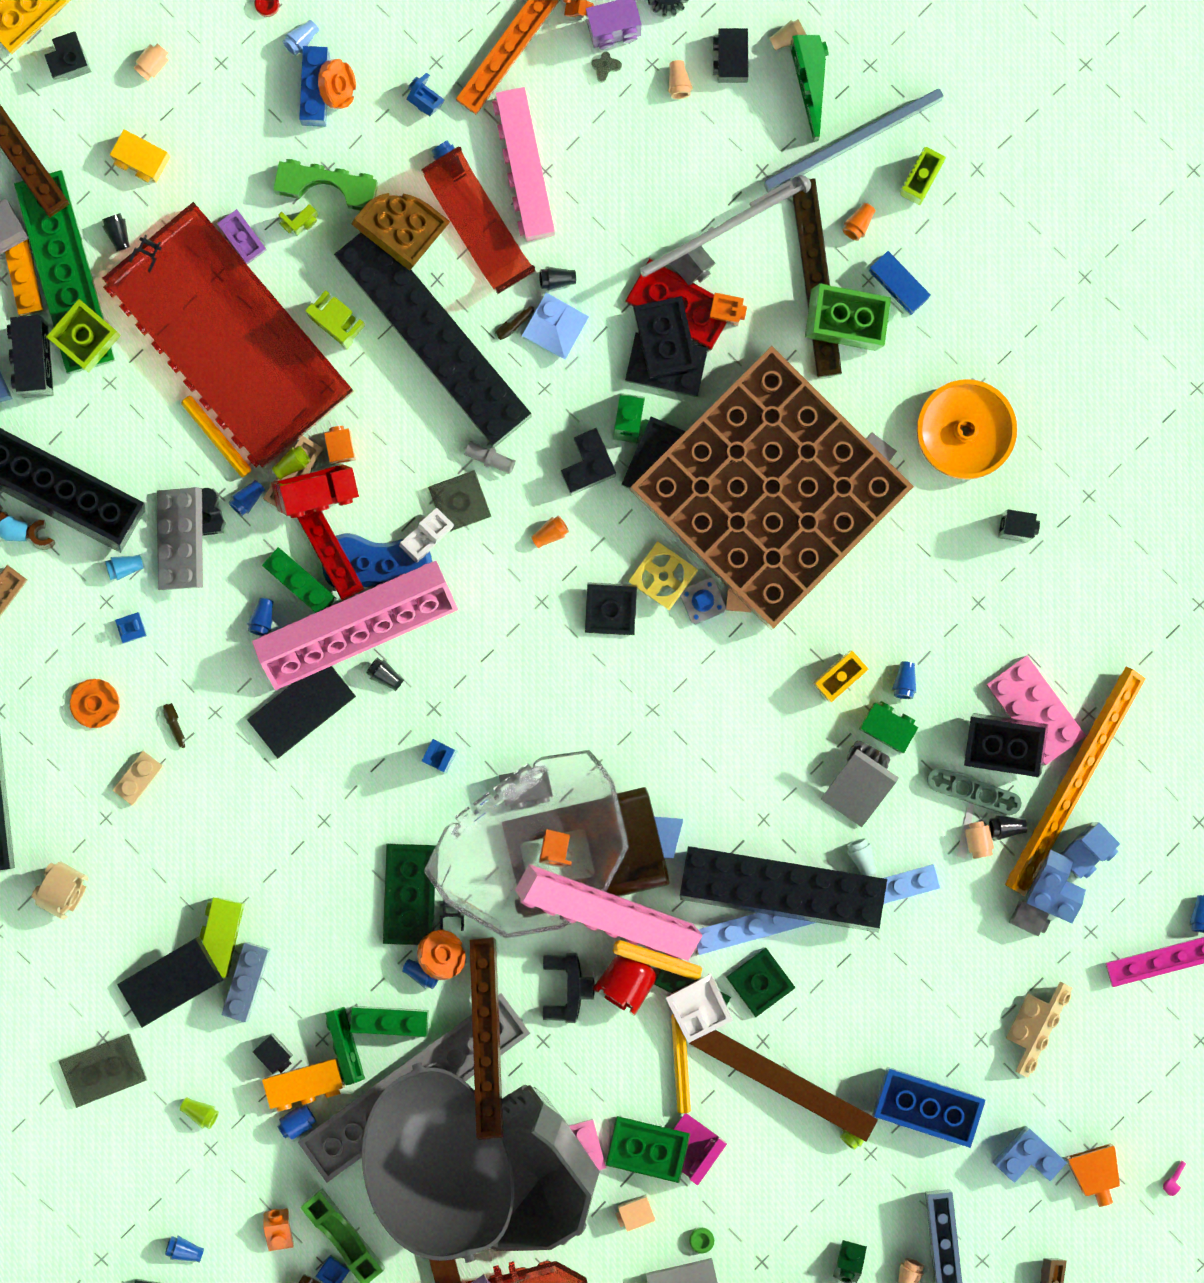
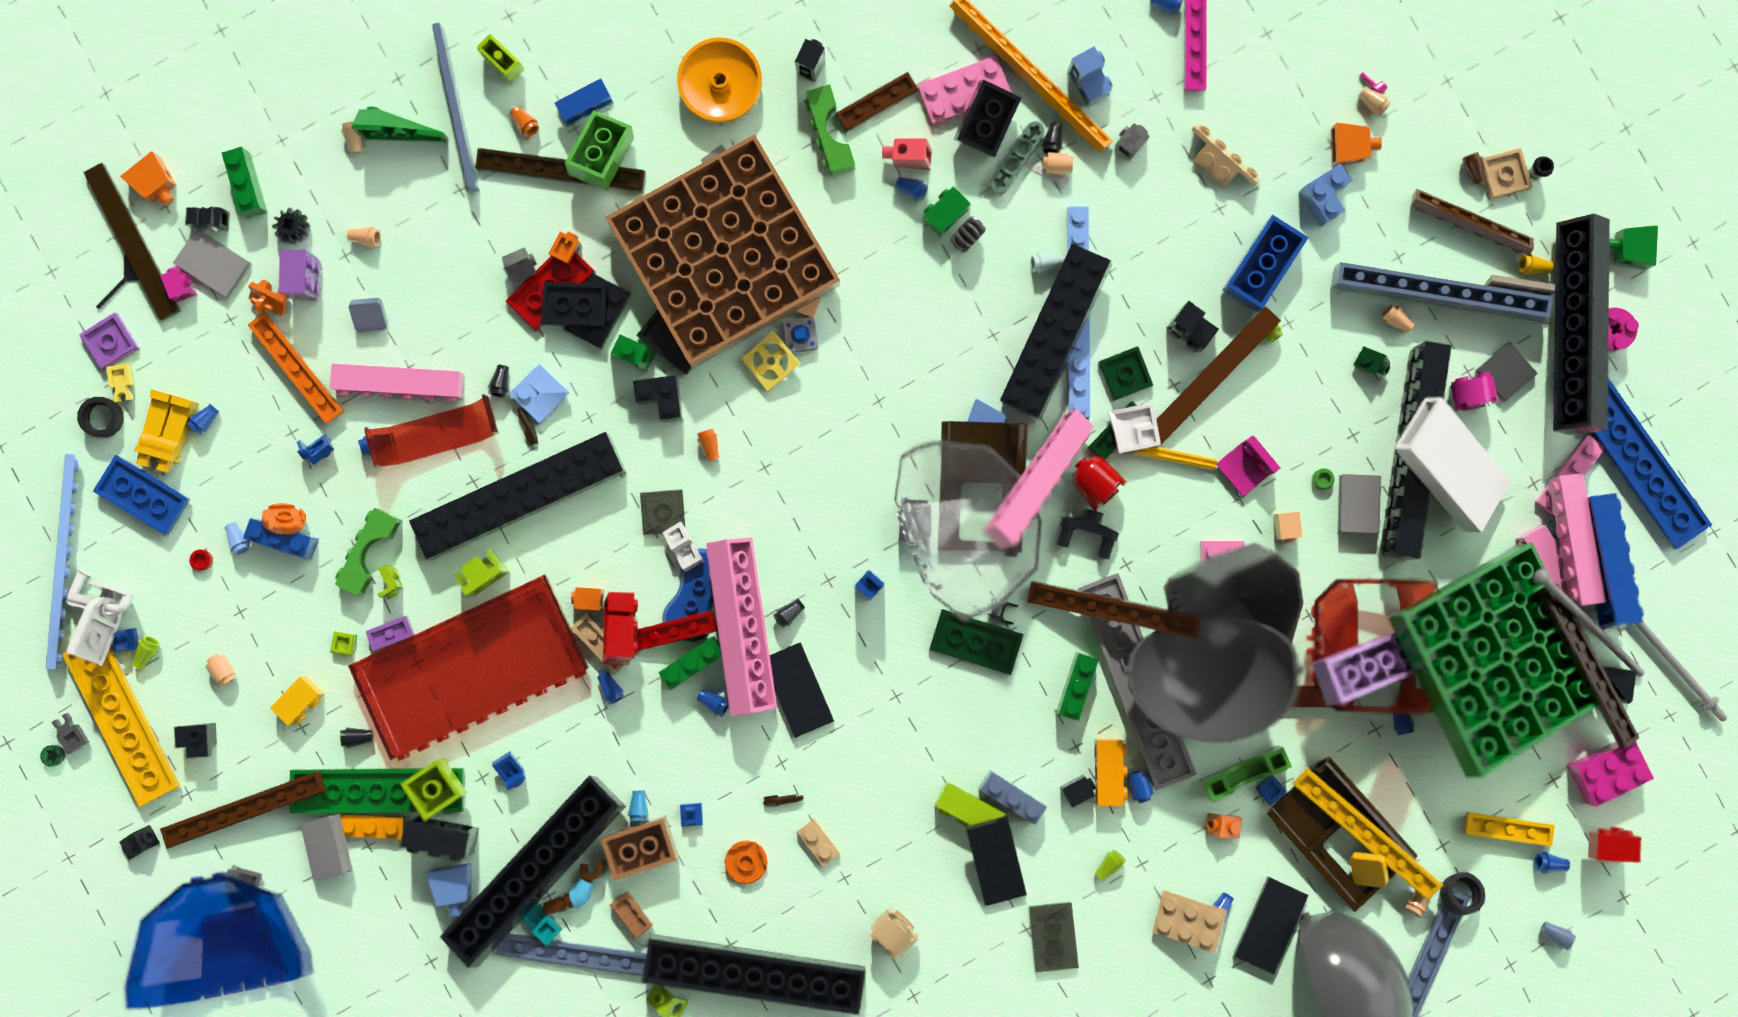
camera: 75 degrees left, 0 degrees up
(79, 581) = (639, 847): none -> medium nougat brick
(125, 412) = (509, 770): none -> blue bracket
(151, 244) = (368, 715): black piece -> none
(160, 1218) = (1189, 921): none -> tan plate
(179, 538) = (628, 753): light grey plate -> none
(209, 506) = (604, 722): black leg -> none
(216, 436) = (551, 700): yellow axle -> none
(217, 188) = (343, 643): none -> lime tile
(292, 462) = (590, 641): lime cone -> none
(344, 1046) = (1087, 729): green plate -> none
(401, 226) = (418, 497): pearl gold plate -> none
(414, 970) = (1046, 647): blue cone -> none
(441, 955) = (1034, 628): orange tile -> none
(490, 457) = (633, 477): light grey pin -> none
(555, 849) = (973, 510): orange bracket -> none
(591, 110) = (368, 314): none -> sand blue piece
(605, 65) = (334, 293): clear smoke piece -> none
(610, 608) = (786, 411): black tile -> none
(648, 1149) = (1238, 502): green tile -> none
(657, 959) = (1086, 450): yellow axle -> none
(732, 55) = (356, 186): black brick -> none
(757, 206) = (478, 160): light grey bar -> none
(832, 1044) = (1192, 327): none -> black brick
(840, 676) = (893, 238): yellow brick -> none
(859, 788) = (990, 246): light grey tile -> none
(918, 587) = (837, 155): none -> bright green arch
(943, 677) = (909, 153): none -> coral torso
(994, 614) = (876, 102): none -> reddish brown tile
(1052, 890) = (1116, 113): medium blue brick -> none
(1154, 1185) = (1374, 101): none -> tan cone

